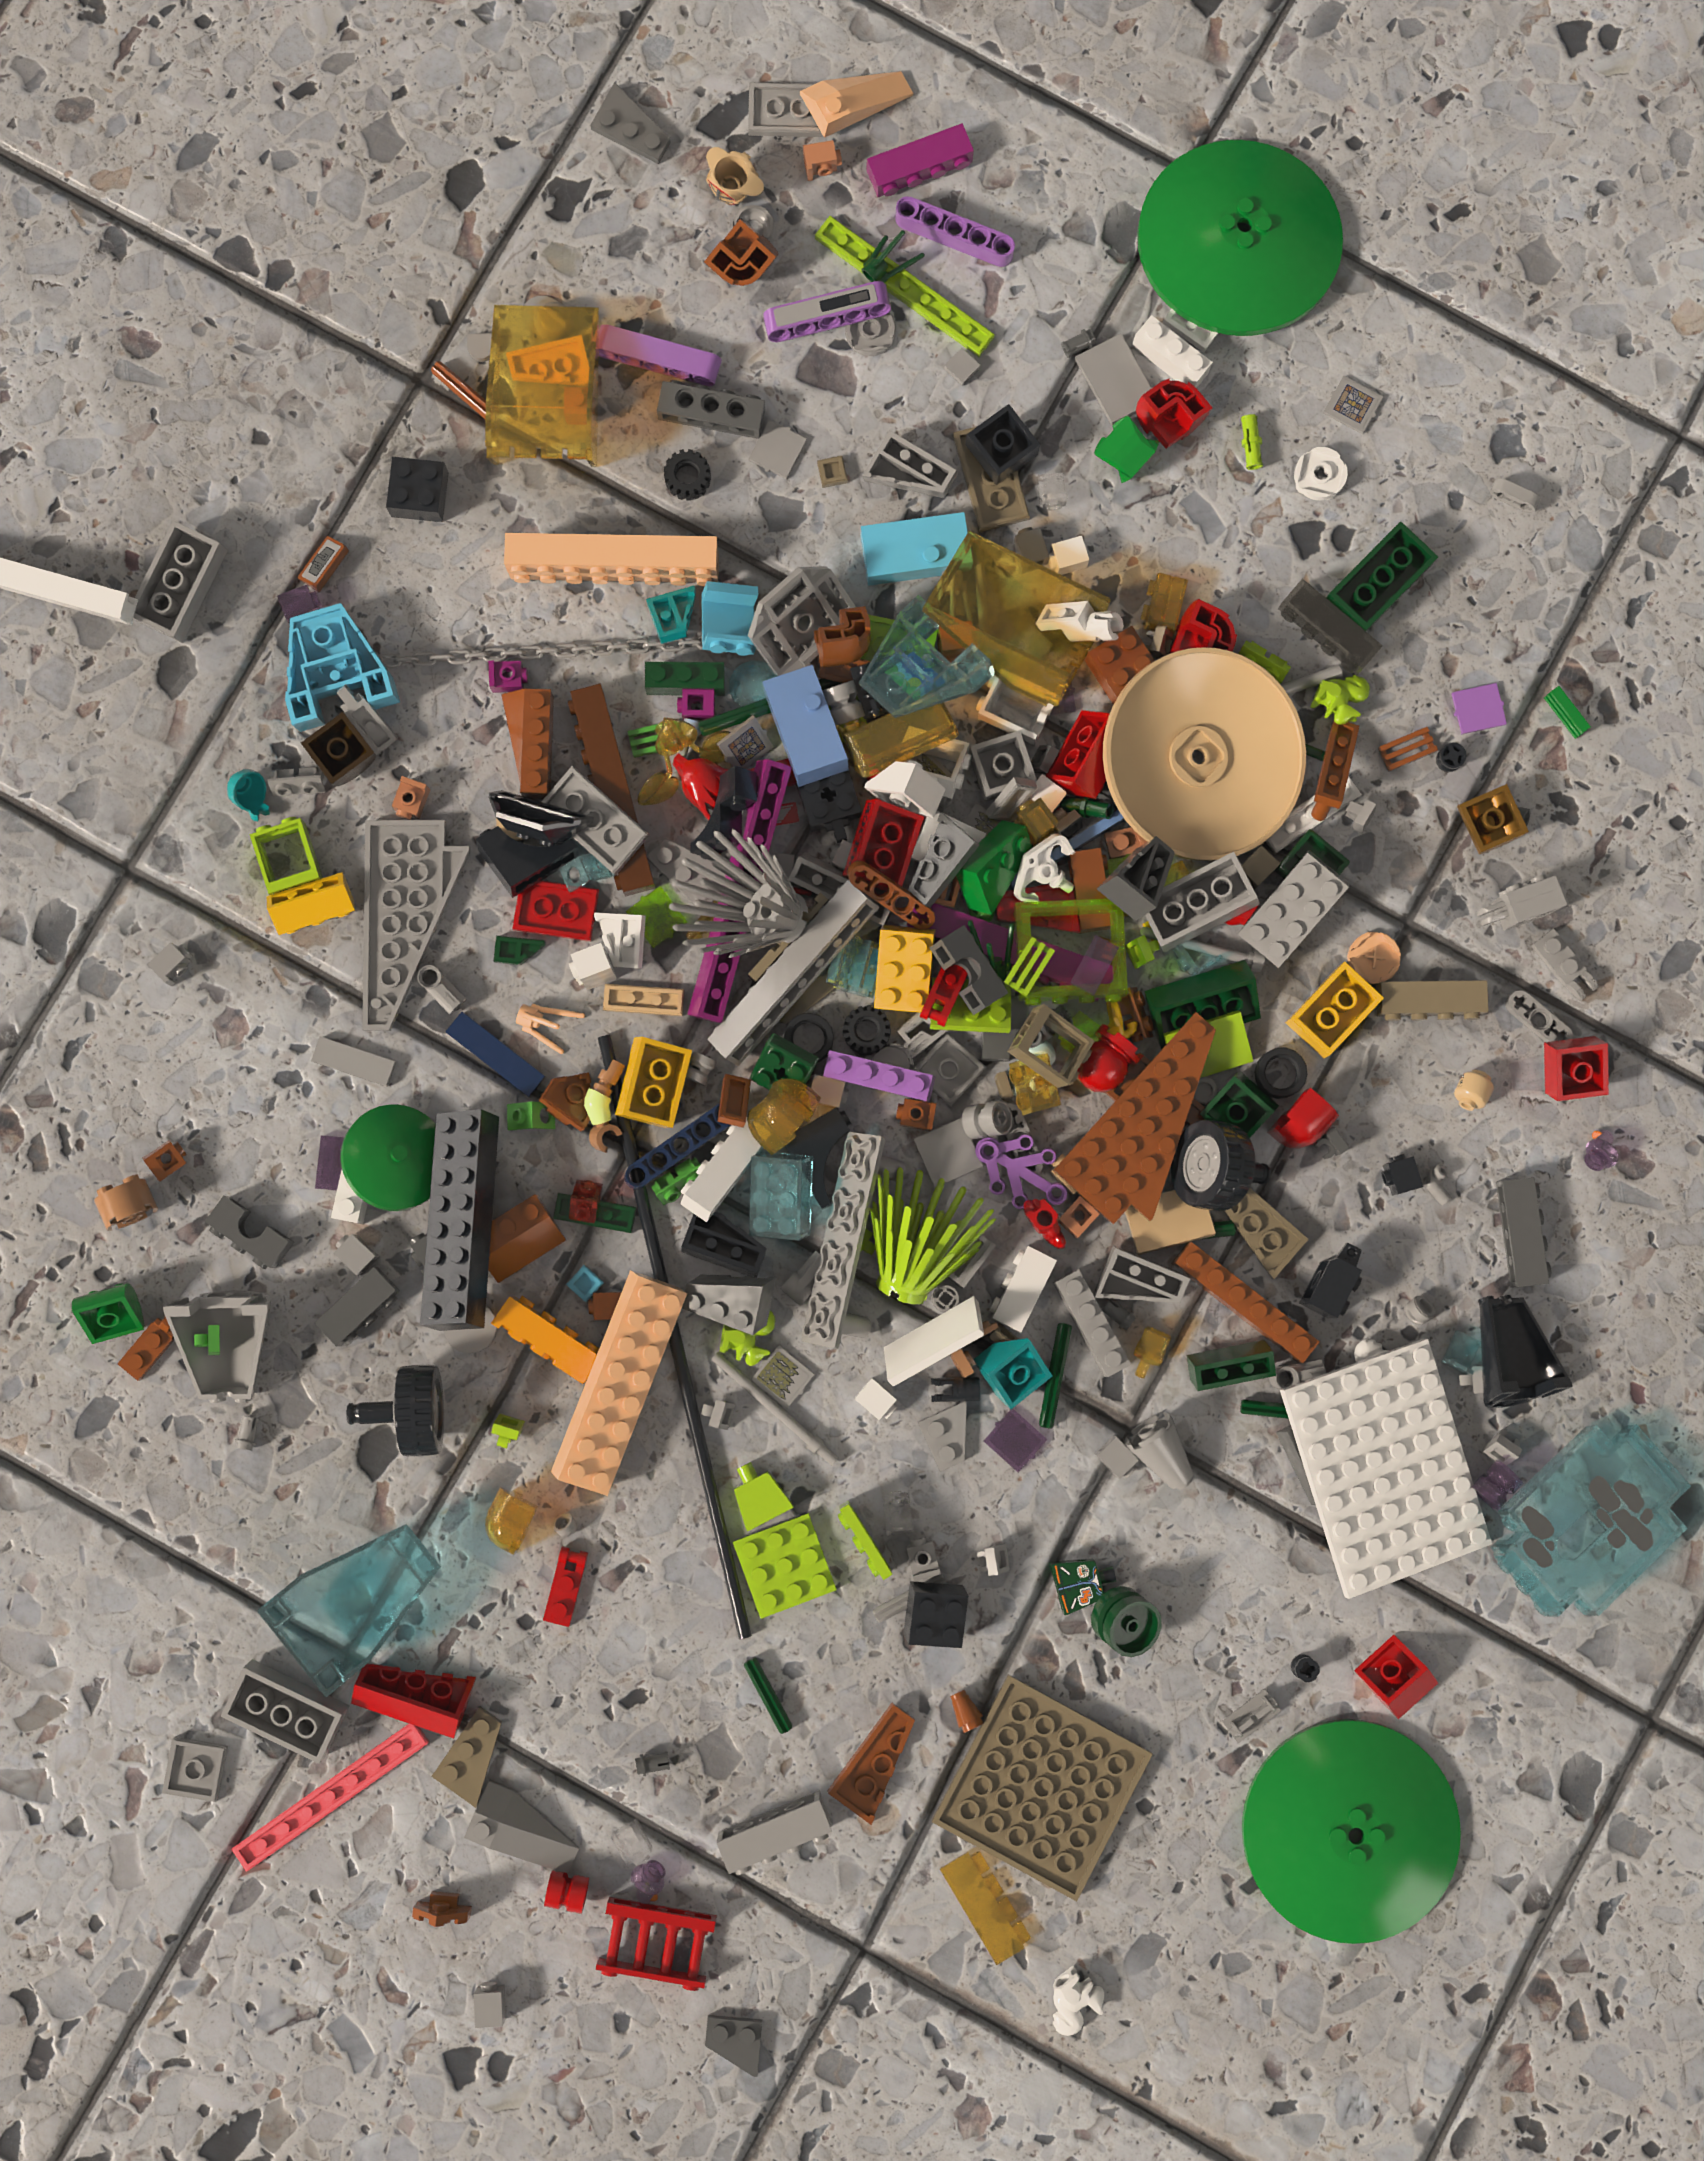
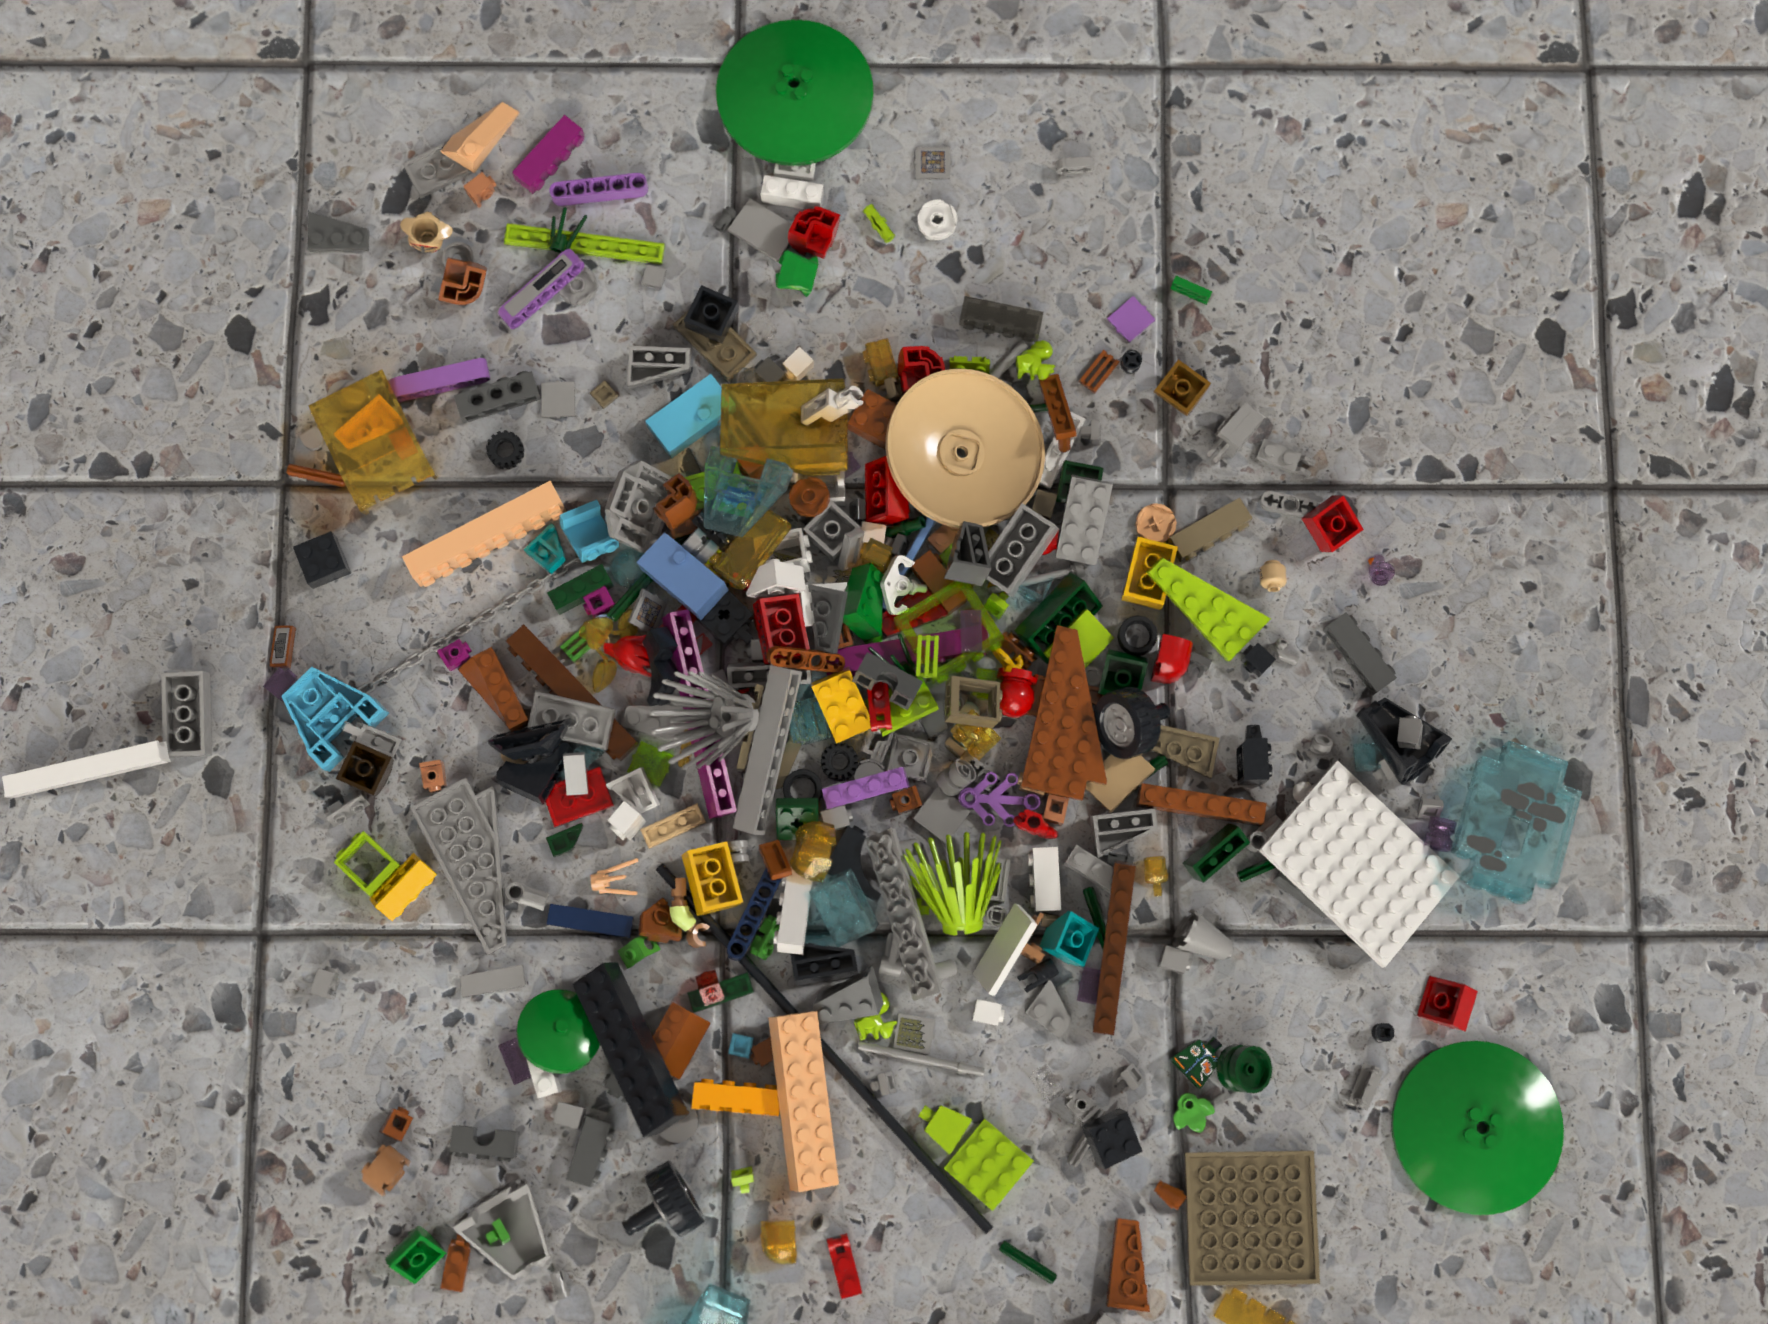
camera: 25 degrees left, 5 degrees down
(248, 792) = (316, 833): teal piece -> none
(566, 882) = (575, 773): none -> tile
(863, 1541) = (1034, 1115): lime plate -> none
(997, 713) = (809, 497): none -> dark orange tile
(1042, 1639) = (1195, 1114): none -> bright green plate
(1056, 1407) = (1114, 947): none -> reddish brown brick
(1382, 576) = (1017, 266): dark green brick -> none
(1383, 1098) = (1217, 616): none -> lime wing
(1528, 1353) = (1410, 732): none -> light grey brick

